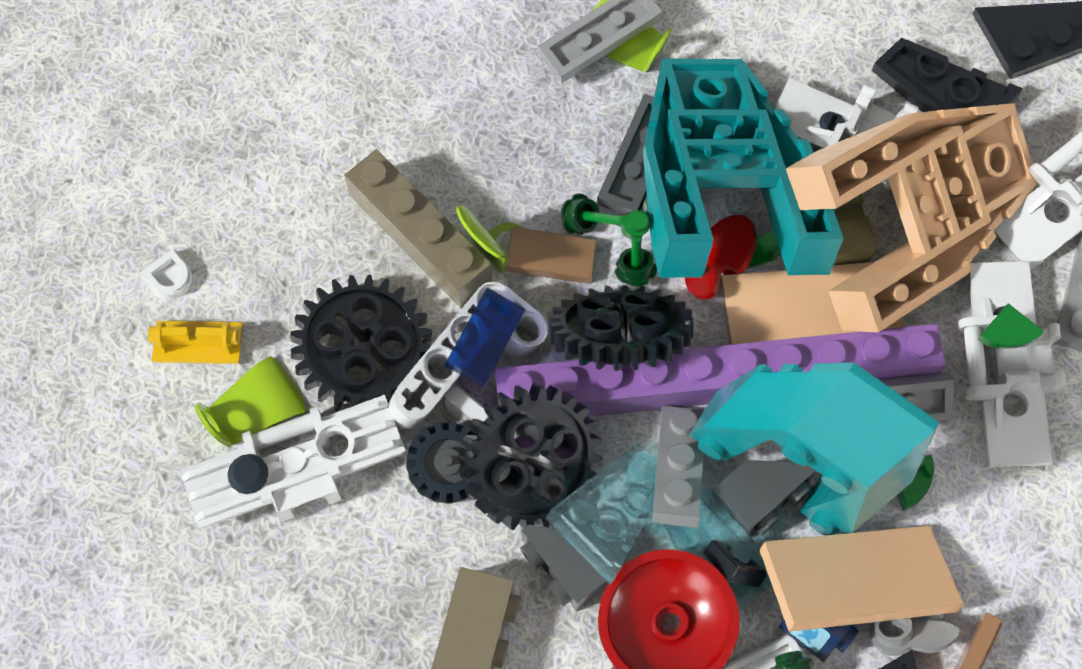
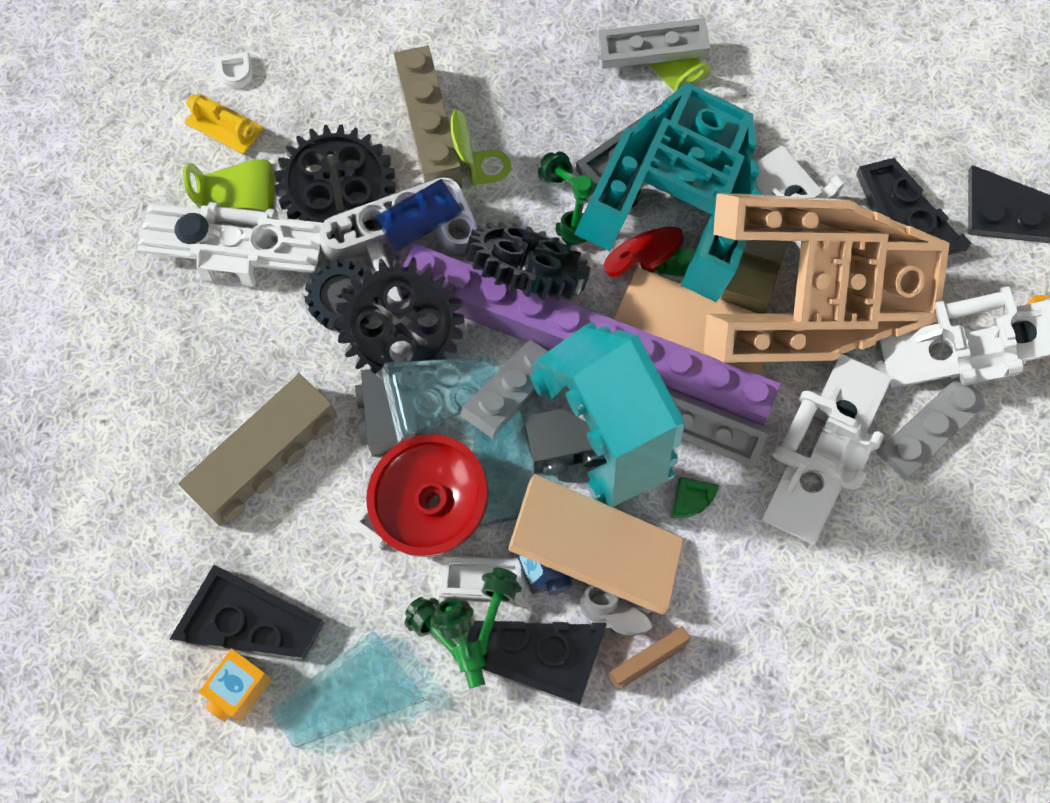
camera: 30 degrees right, 0 degrees up
(550, 255) = (515, 188): medium nougat tile -> none
(732, 568) = (501, 483): black tile -> none
(1010, 330) = (836, 417): green tile -> none

